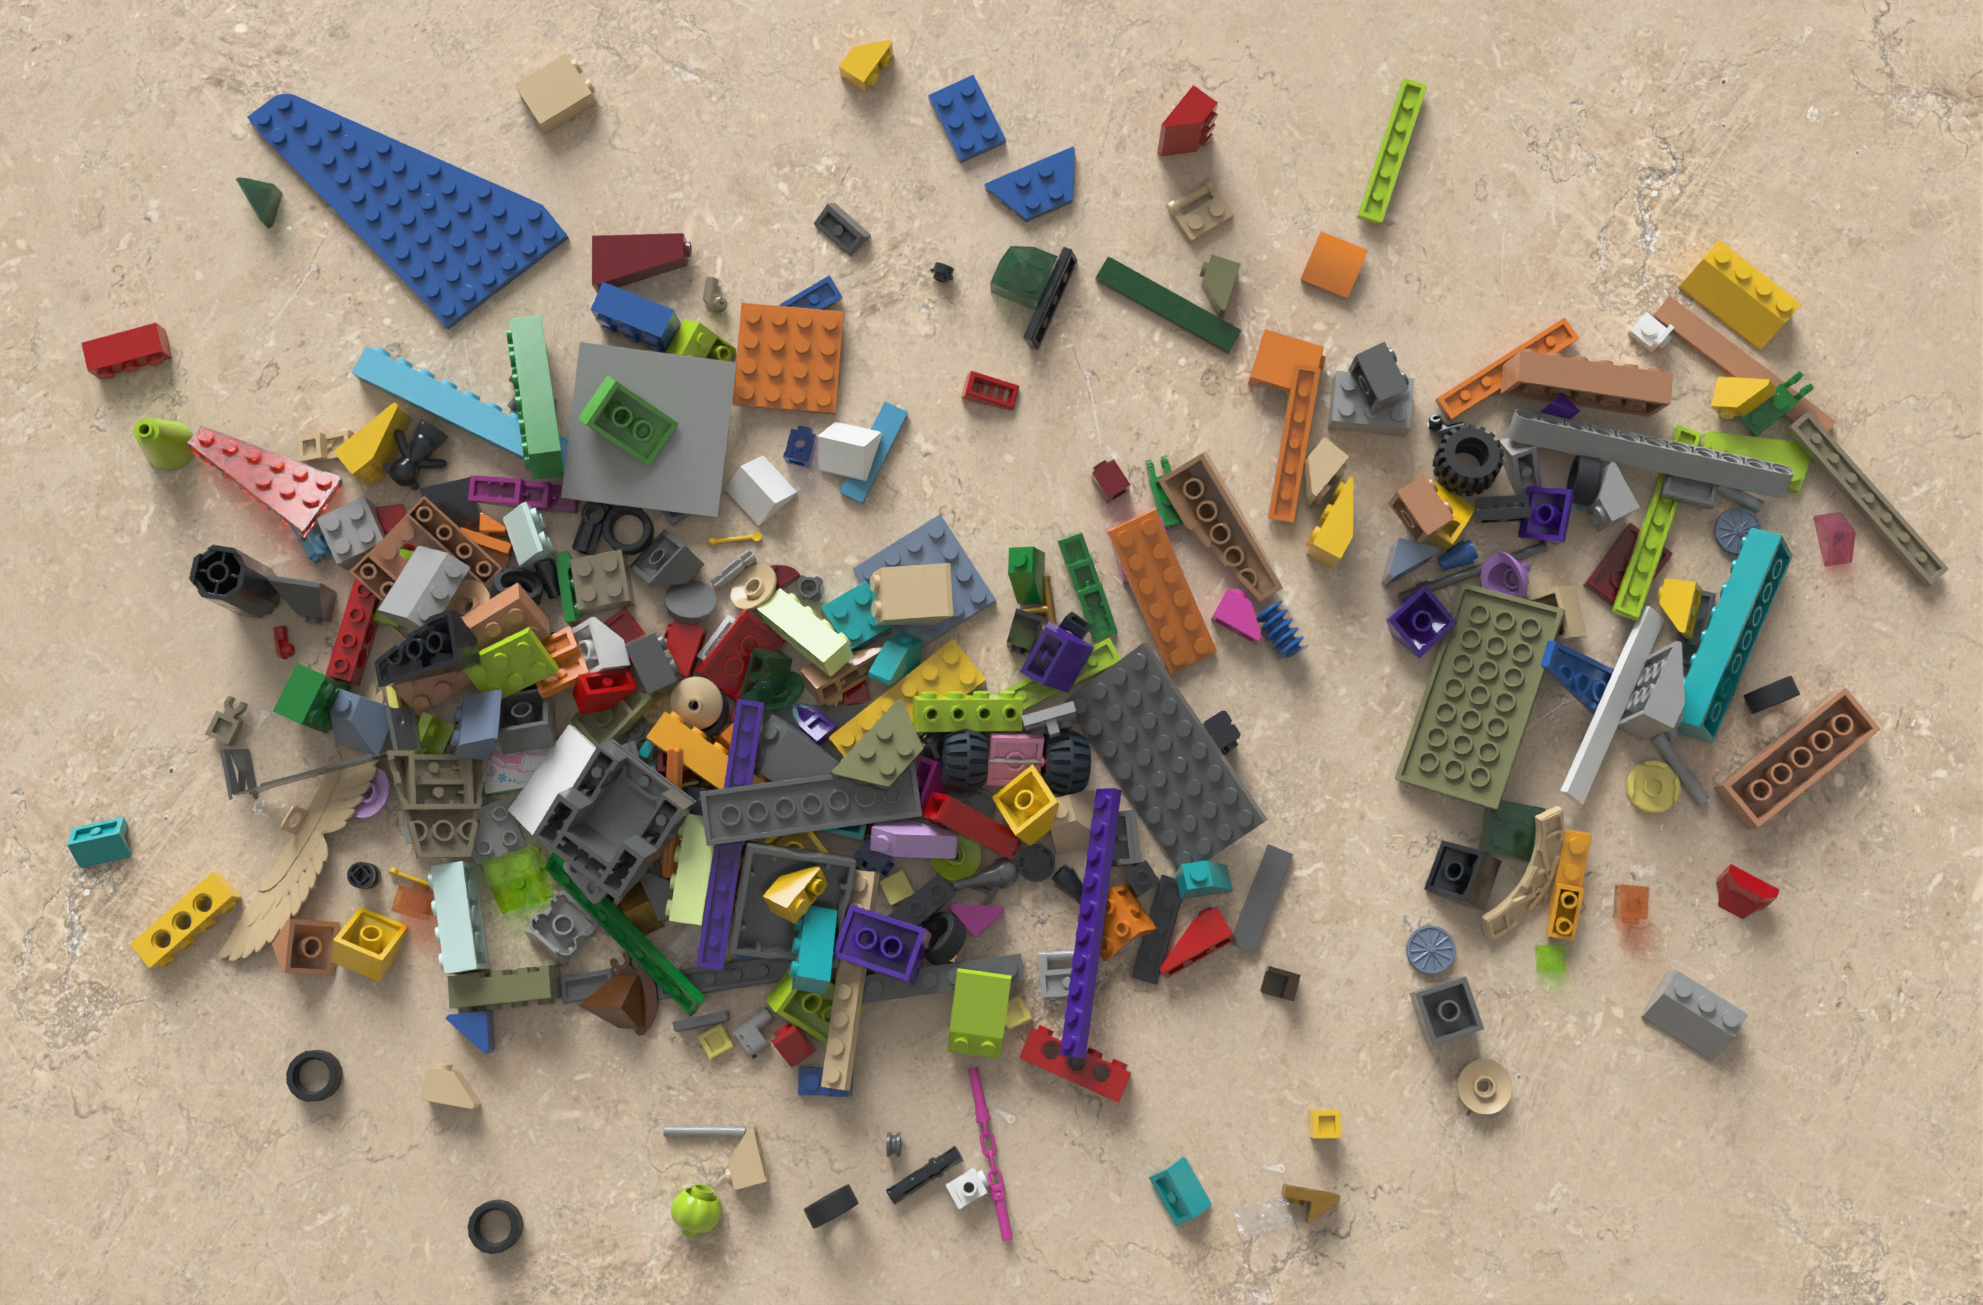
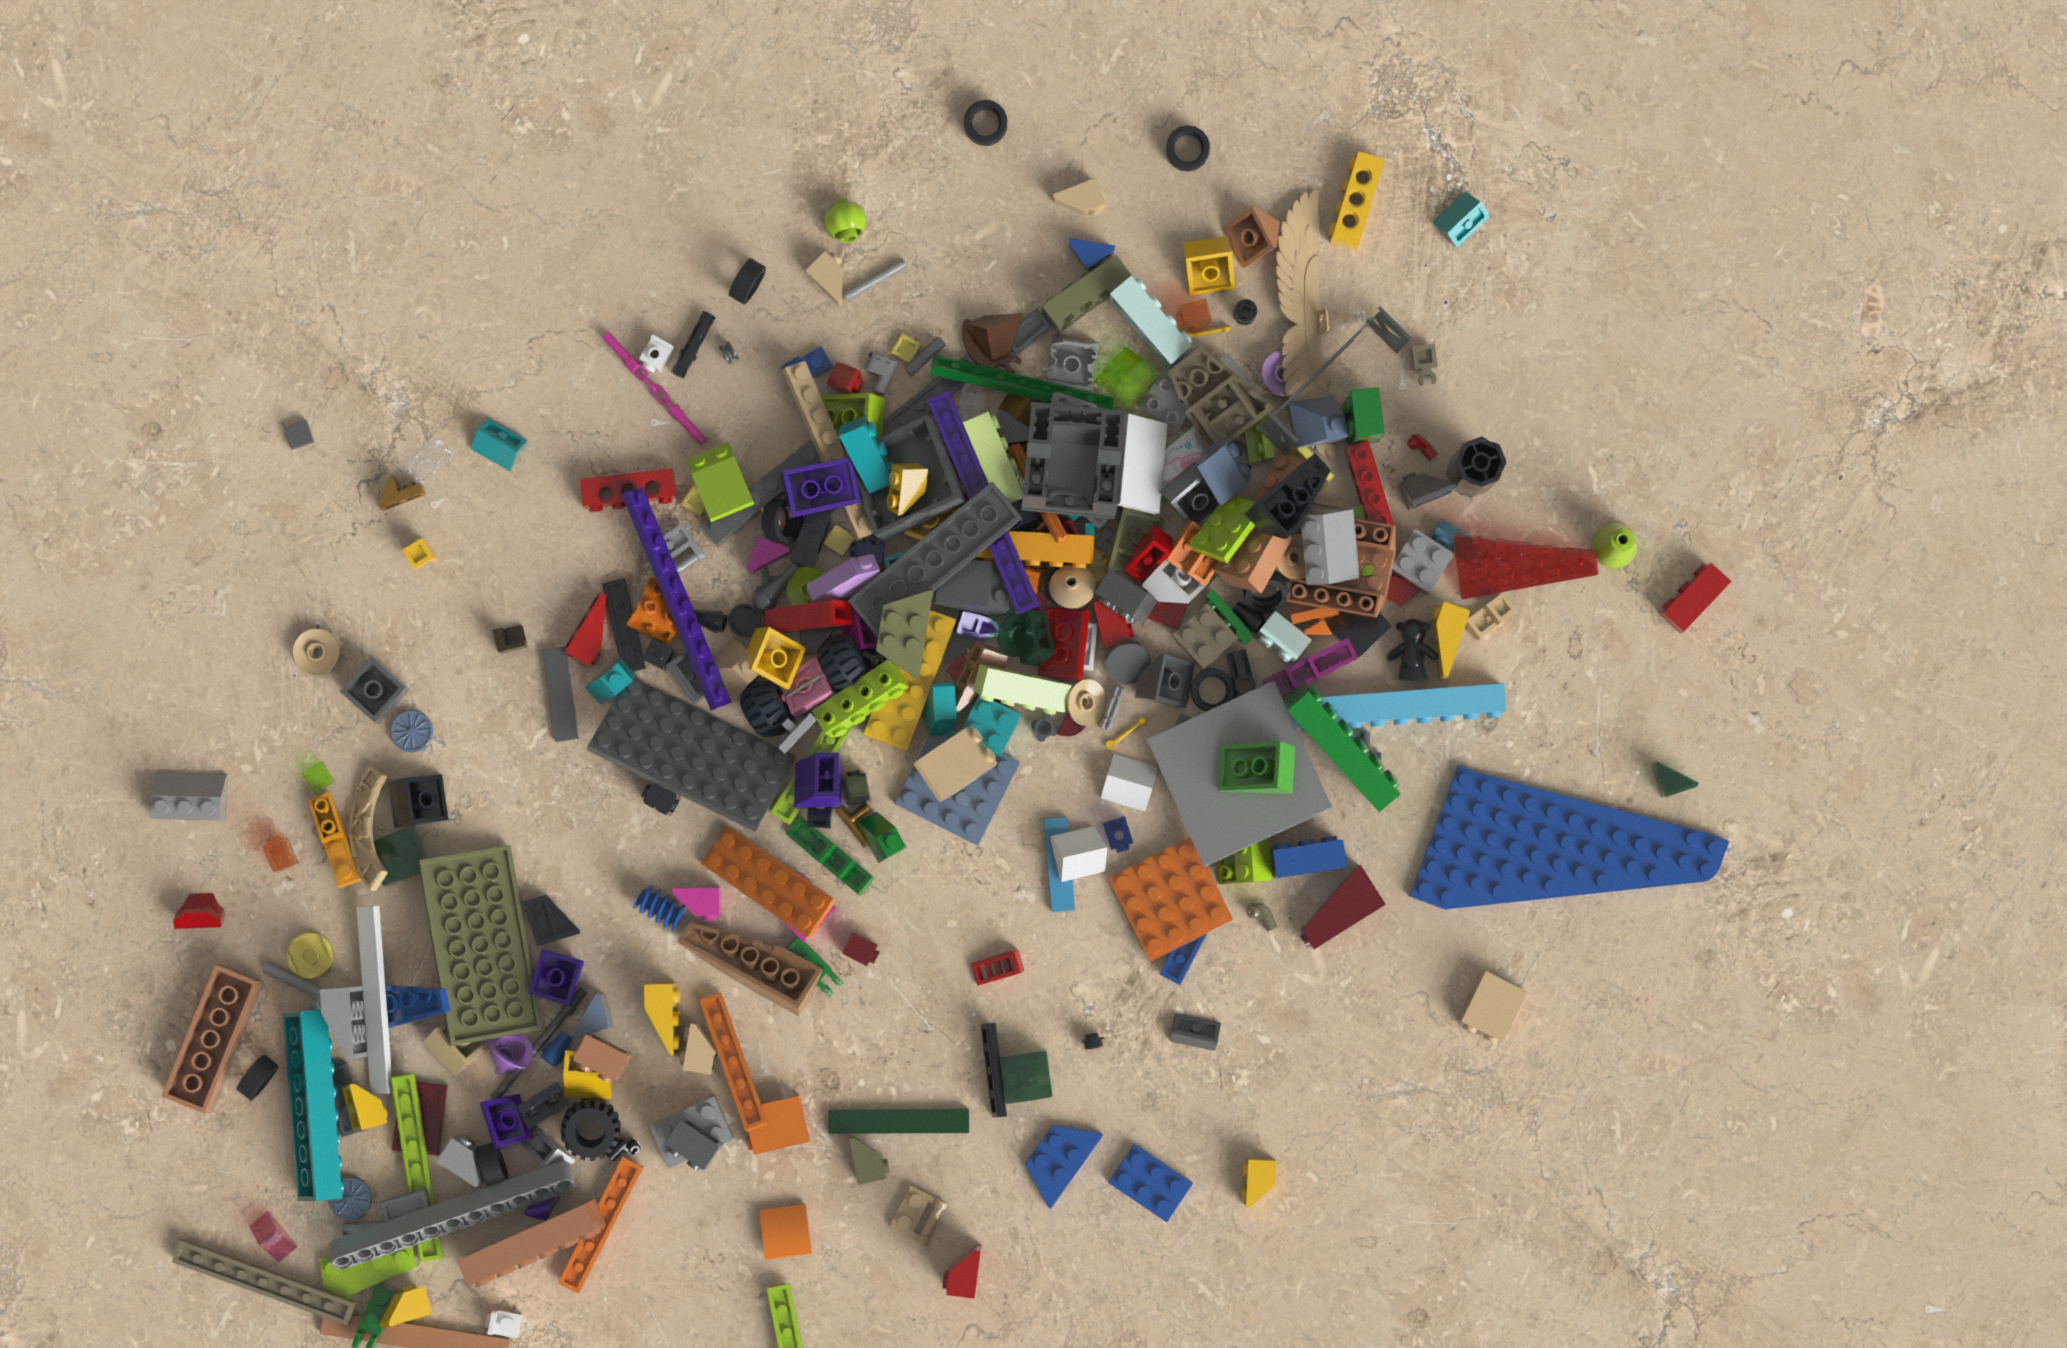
camera: 145 degrees right, 5 degrees up
(1398, 682) = (548, 921): none -> black wing

